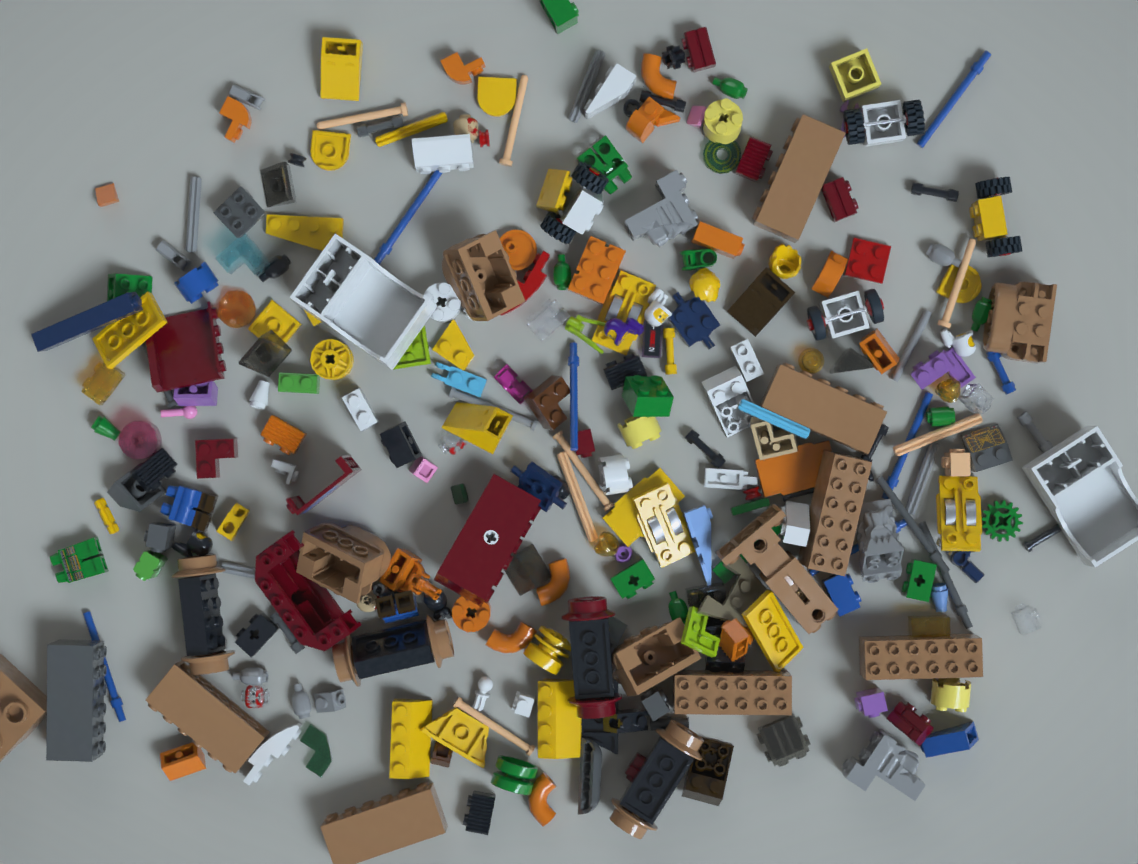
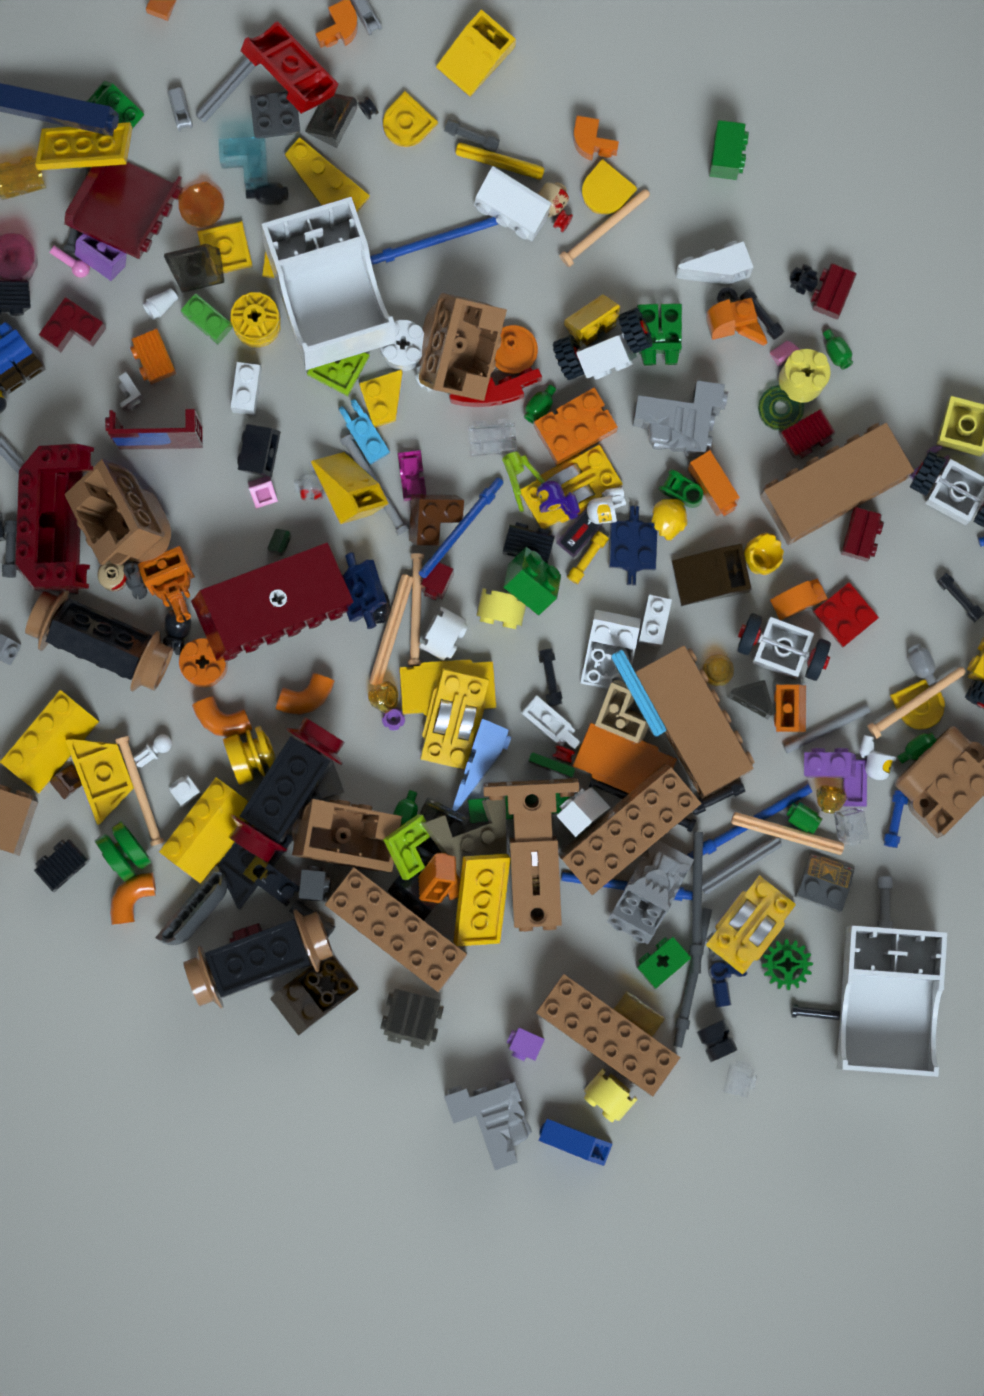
camera: 35 degrees right, 5 degrees down
(196, 282) = (182, 149): blue brick -> none
(225, 172) = (291, 66): none -> red piece
(233, 521) = (40, 403): yellow leg -> none
(364, 117) = (506, 136): light nougat bar -> none
(397, 608) = (135, 601): dark brown hips -> none
(527, 570) = (288, 664): clear smoke slope -> none
(586, 86) = (700, 245): light grey axle -> none
(622, 579) = (396, 744): green brick -> none
(653, 79) = (769, 286): orange cylinder -> none
(841, 593) = (577, 917): blue brick -> none
(910, 723) = (548, 1094): dark red brick -> none
(939, 596) = (671, 993): medium blue cone -> none
(956, 463) = (784, 872): light nougat brick -> none
(995, 606) = (717, 1041): none -> black wheel

